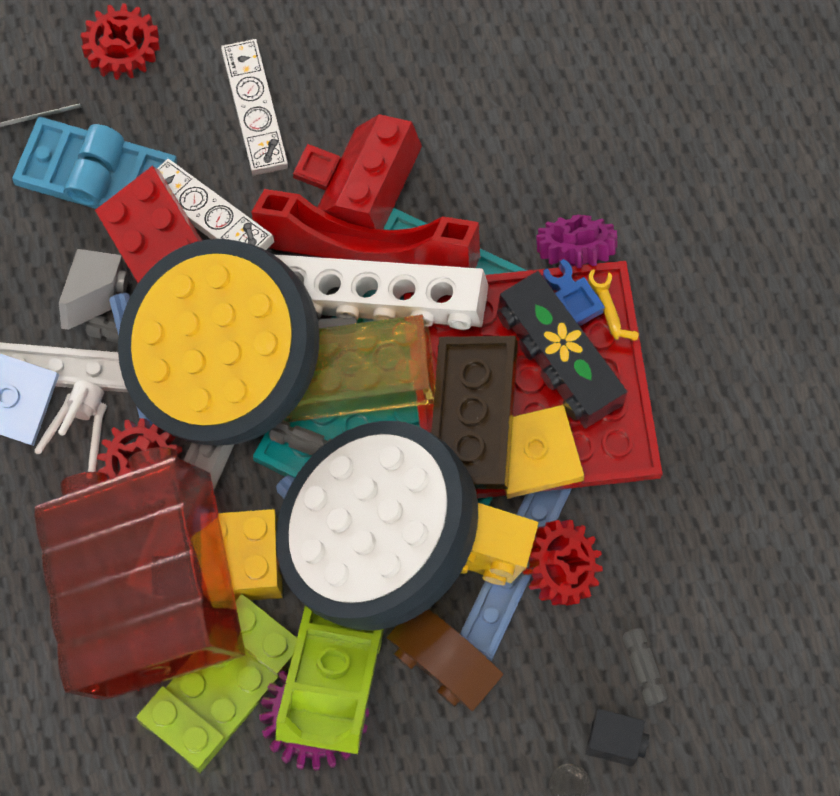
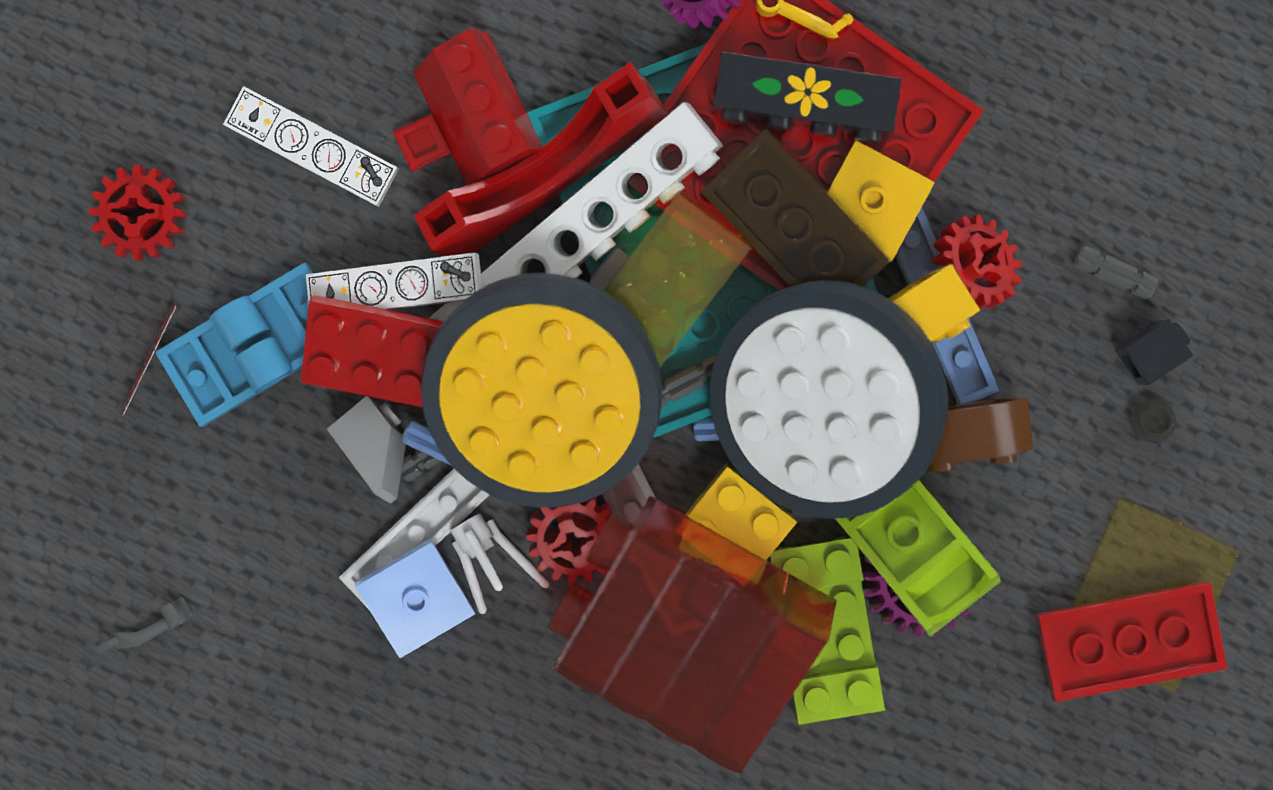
camera: 45 degrees left, 20 degrees up
(576, 296) = (769, 38): blue plate -> none

